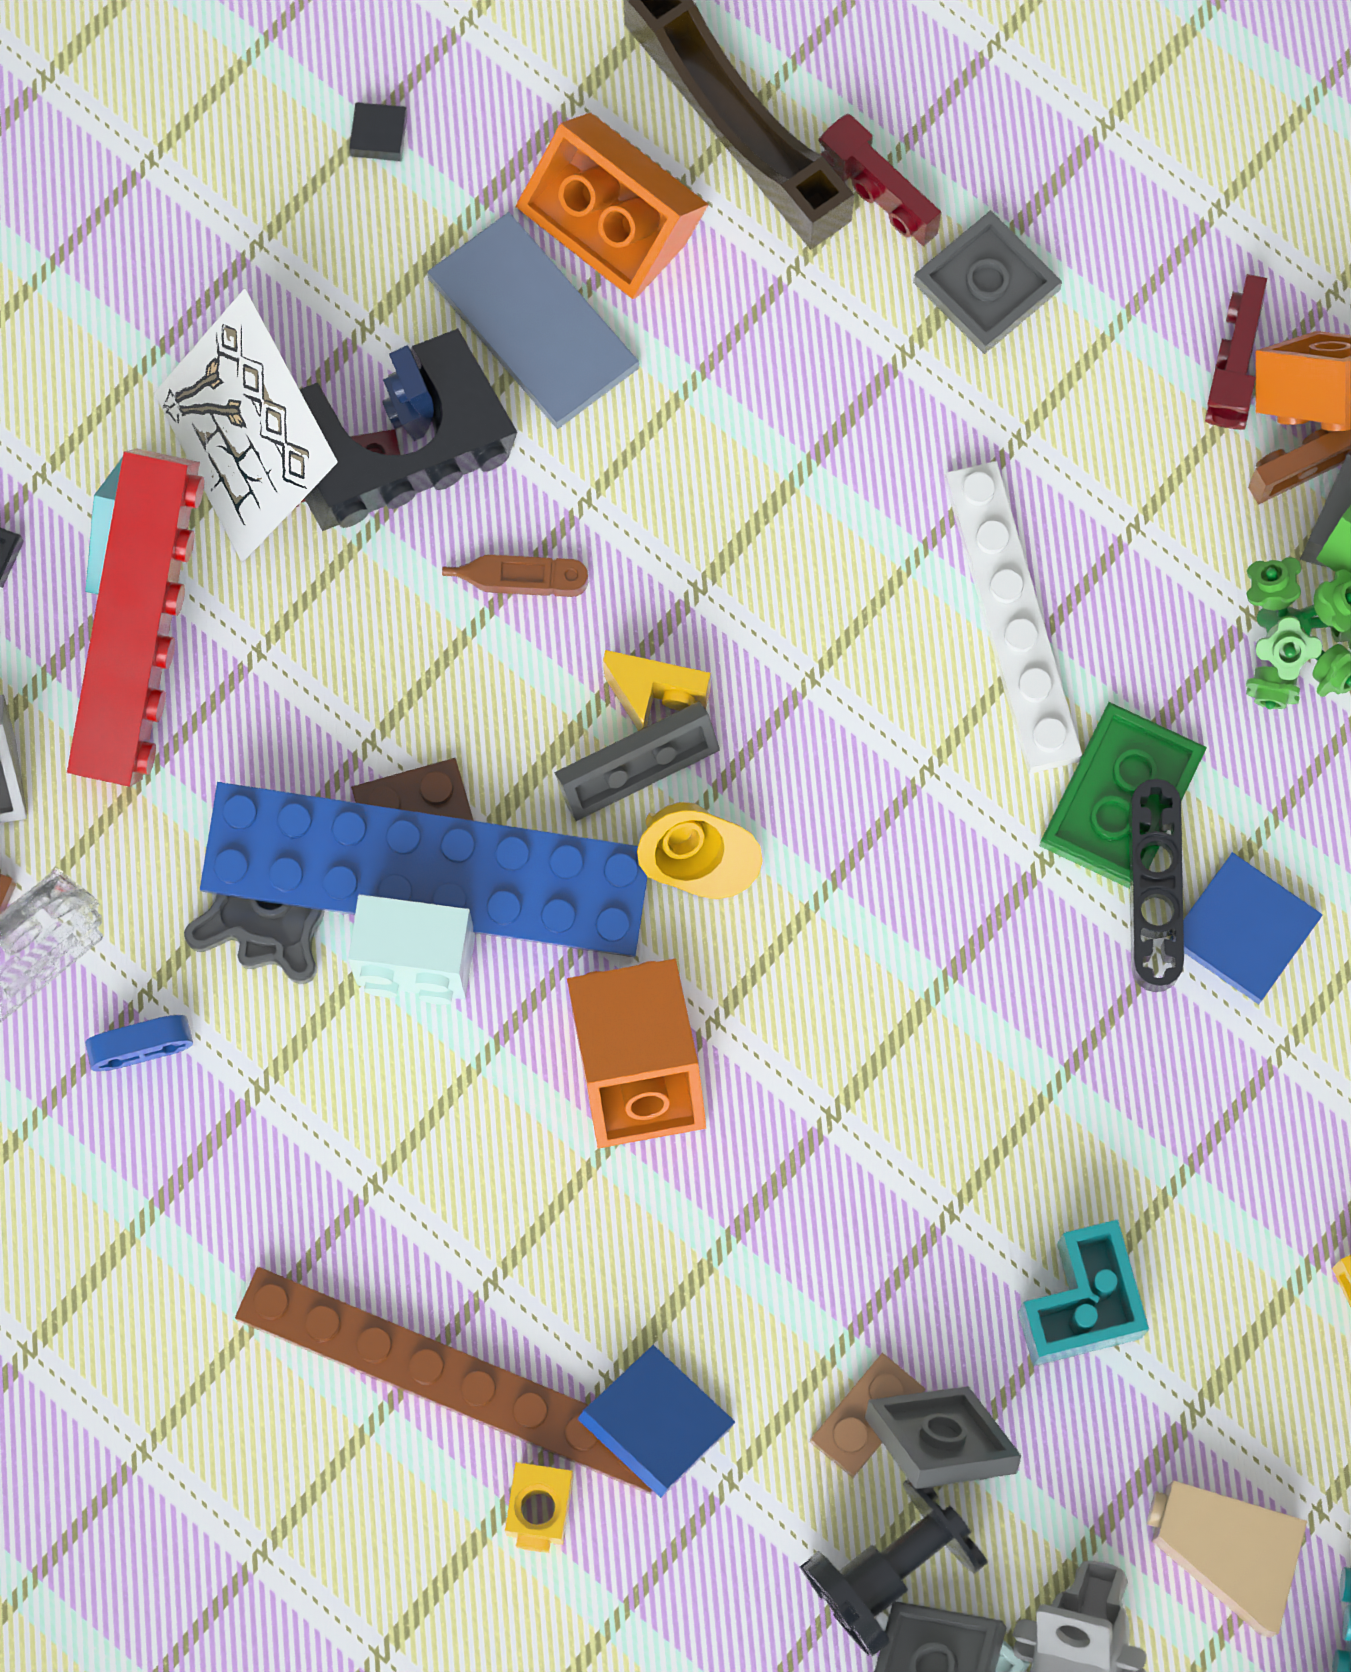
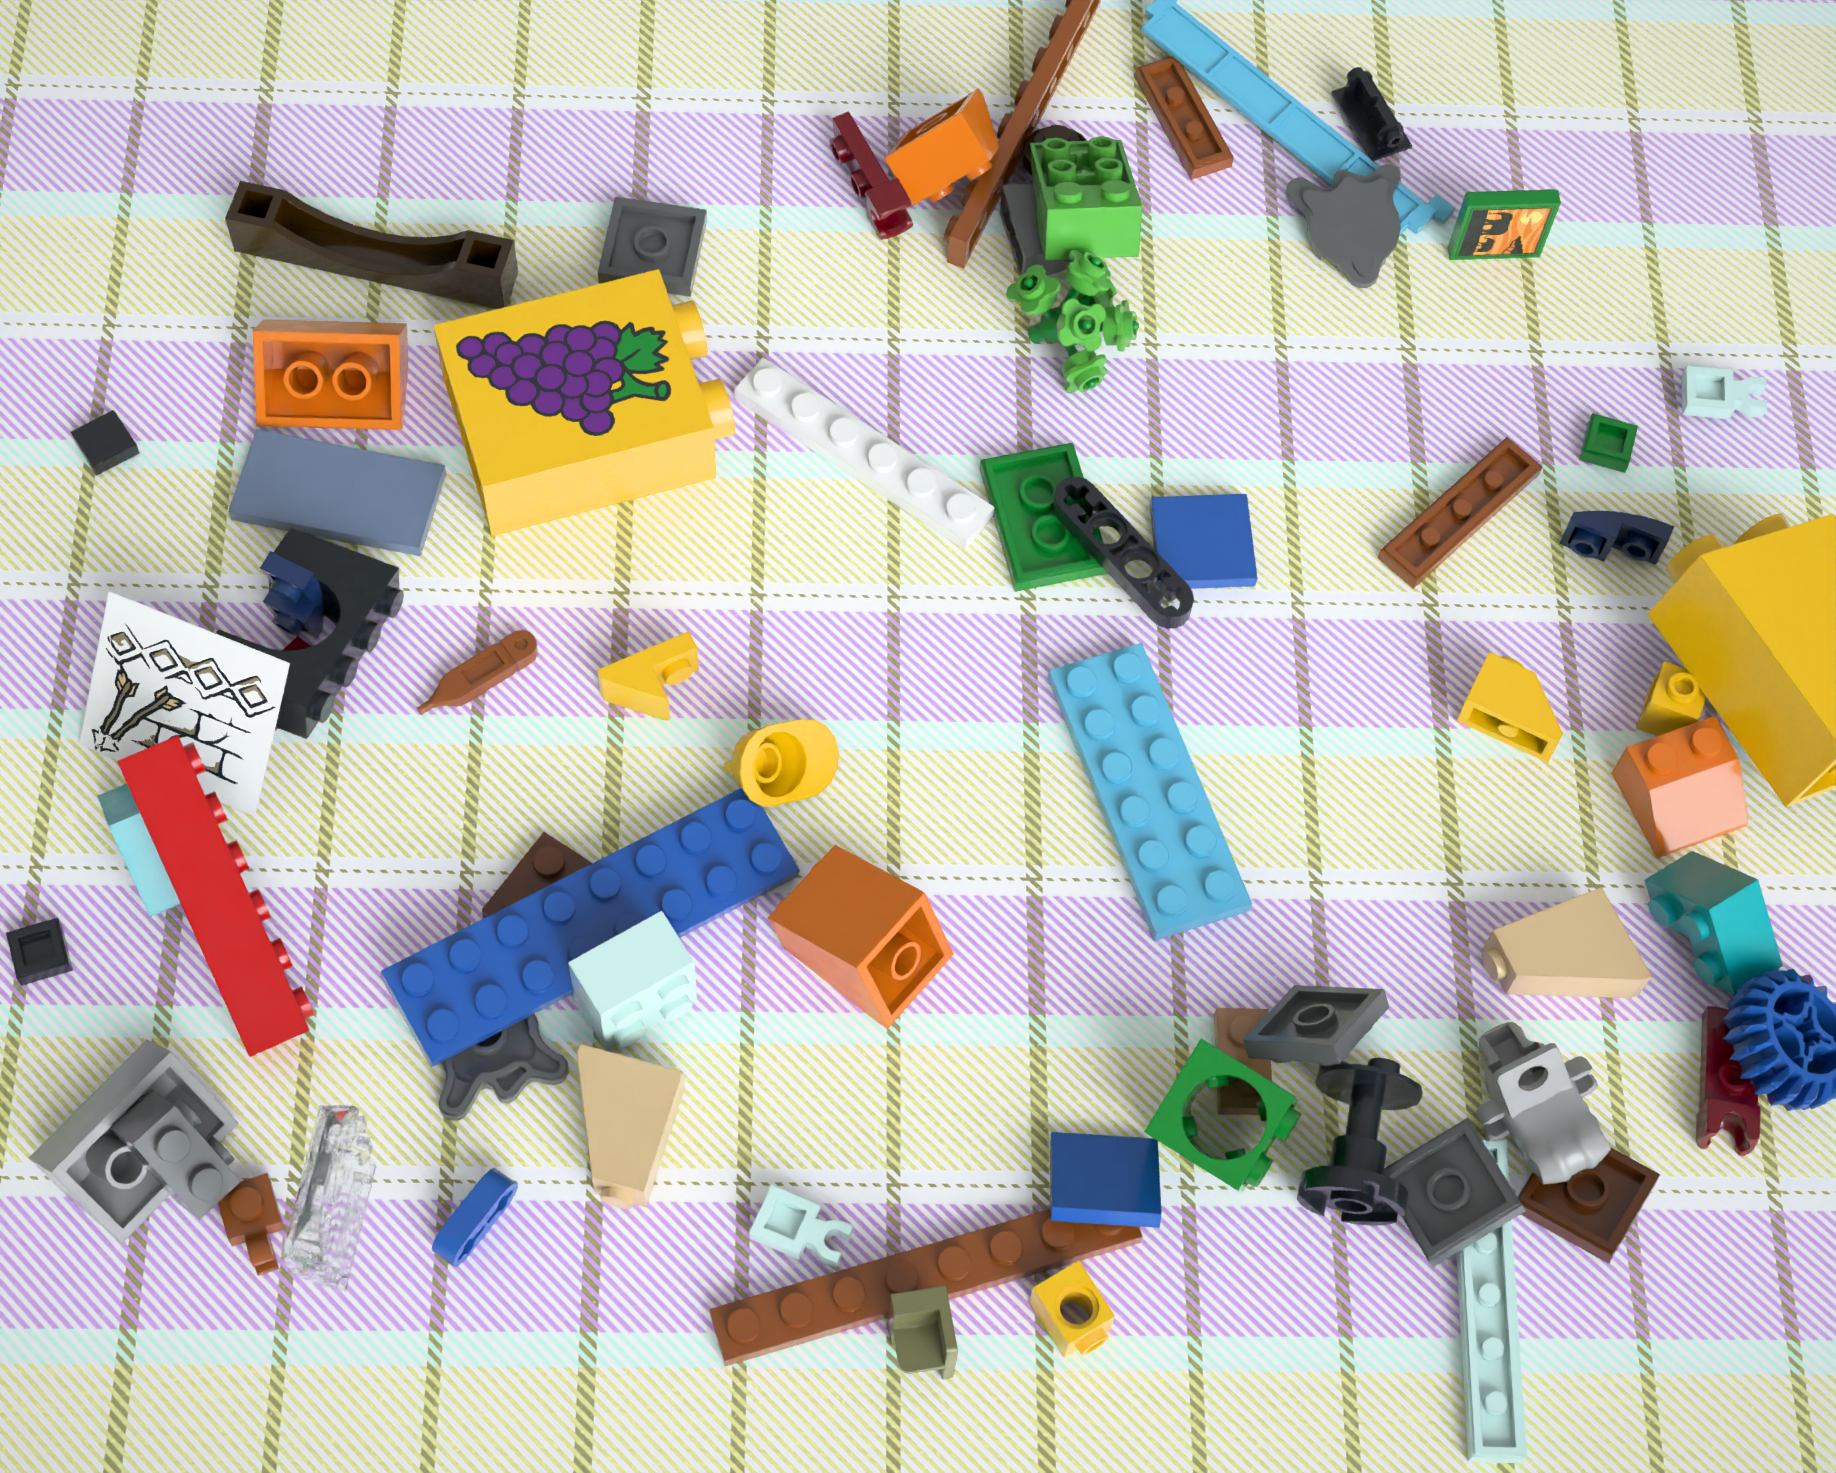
camera: 45 degrees left, 10 degrees down
(315, 1060) = (627, 1122): none -> tan slope
(377, 1251) = (792, 1223): none -> light aqua plate
(396, 1427) = (923, 1331): none -> olive panel
(637, 761) = (683, 735): dark grey plate -> none
(742, 1441) = (1213, 1069): none -> green brick
(794, 389) = (582, 400): none -> yellow brick
(876, 180) = (531, 230): dark red plate -> none
(995, 1116) = (1149, 792): none -> medium azure plate
(1097, 1309) = (1332, 849): teal brick -> none

